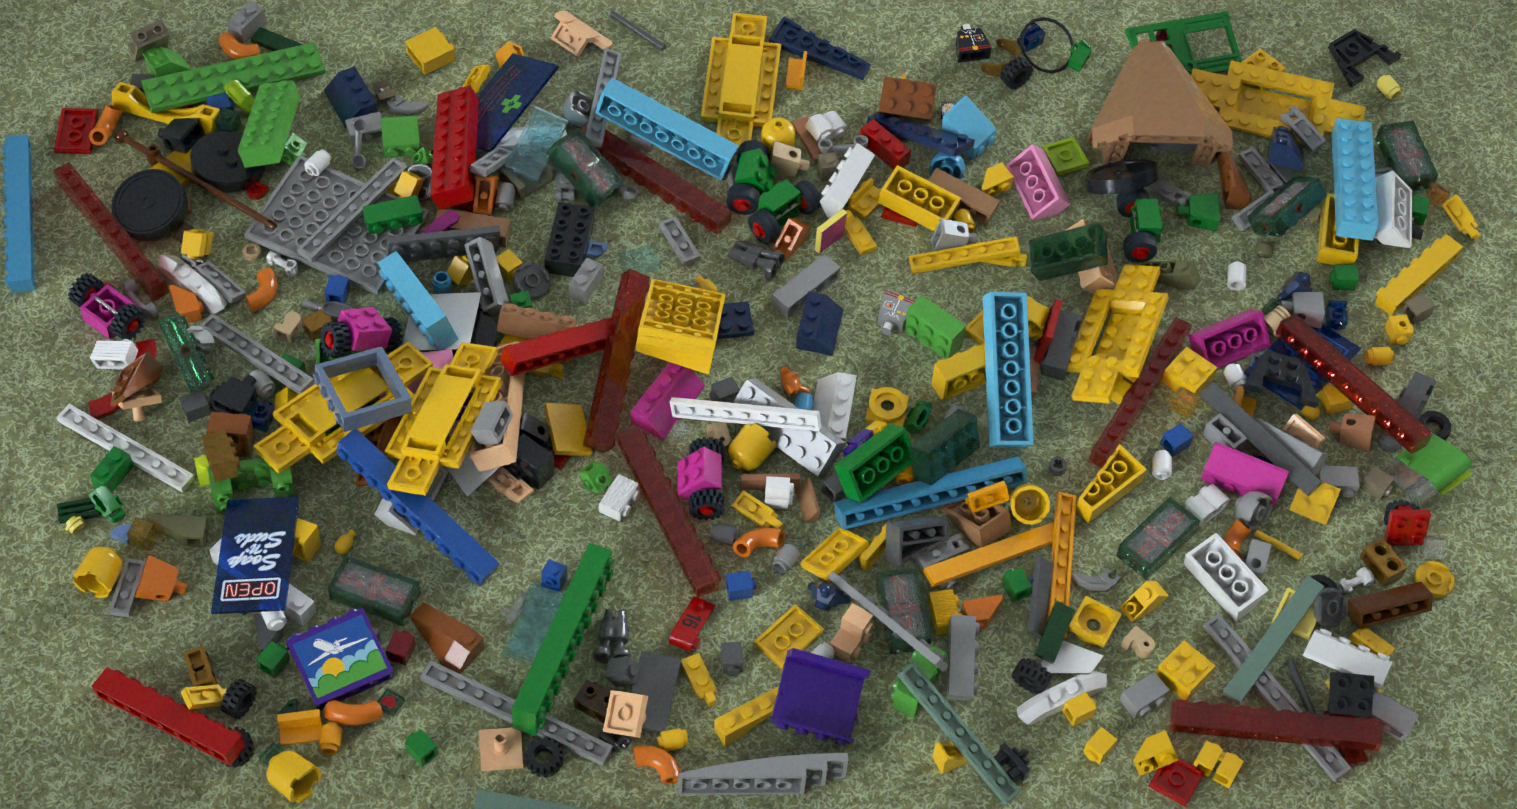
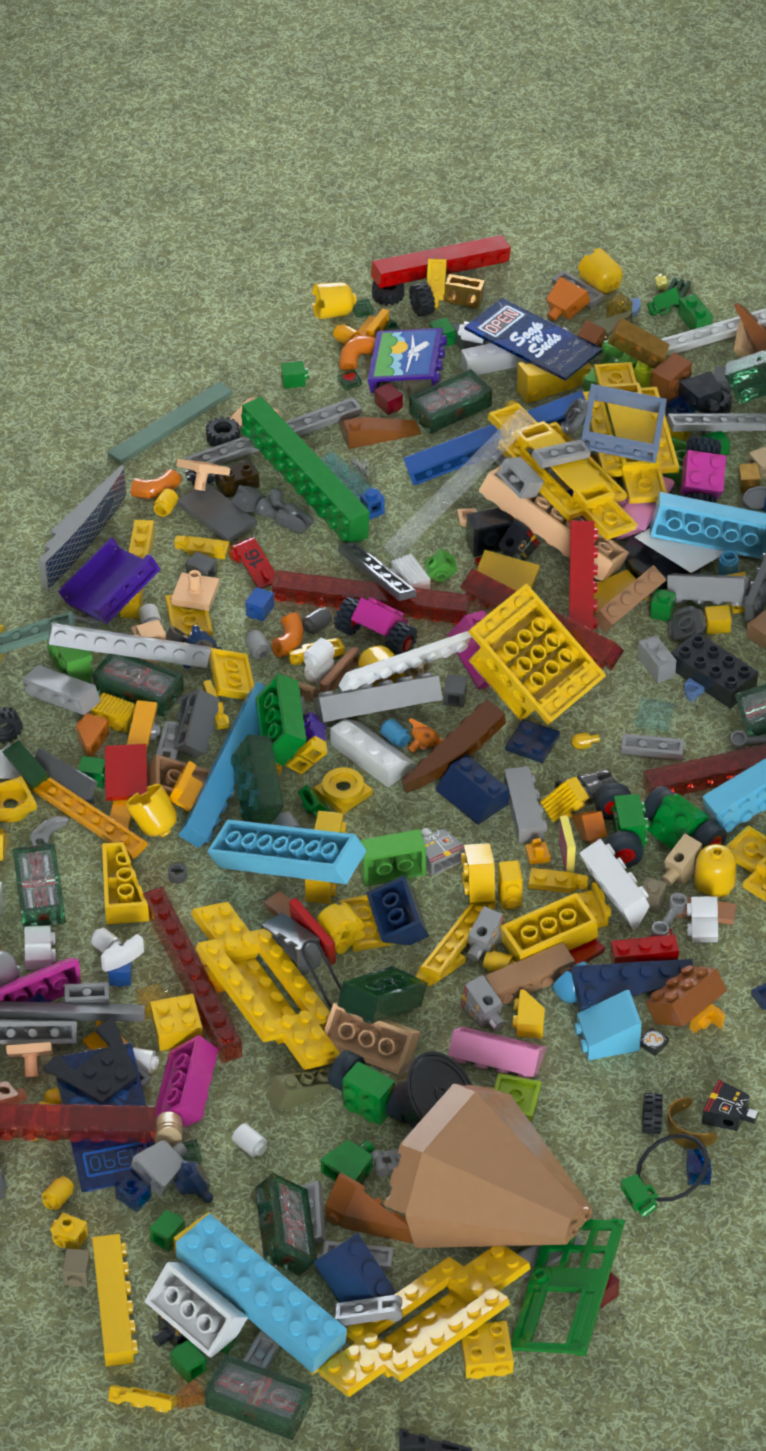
camera: 130 degrees right, 10 degrees down
(212, 518) = (593, 333): none -> dark orange brick
(381, 425) = (574, 416): none -> dark grey tile
(442, 405) = (561, 453): none -> light grey plate
(520, 477) = (458, 483): none -> clear brick
(639, 516) = (377, 571): none -> dark grey tile
(764, 641) = (195, 591): none -> light nougat tile
(790, 251) = (565, 799): none -> yellow brick
(790, 347) = (465, 739): none -> reddish brown wedge
(829, 620) = (175, 634): none -> dark grey hat
(842, 257) = (537, 852): none -> light orange tile
(896, 244) = (510, 884): none -> yellow brick
(906, 263) = (478, 872): none -> yellow brick
(968, 304) = (397, 913): none -> dark blue slope
(1006, 548) = (125, 771): none -> red tile
(1013, 201) = (482, 1003): none -> light grey torso
(1074, 312) = (312, 971): none -> black piece
(1183, 430) = (118, 955): none -> white slope

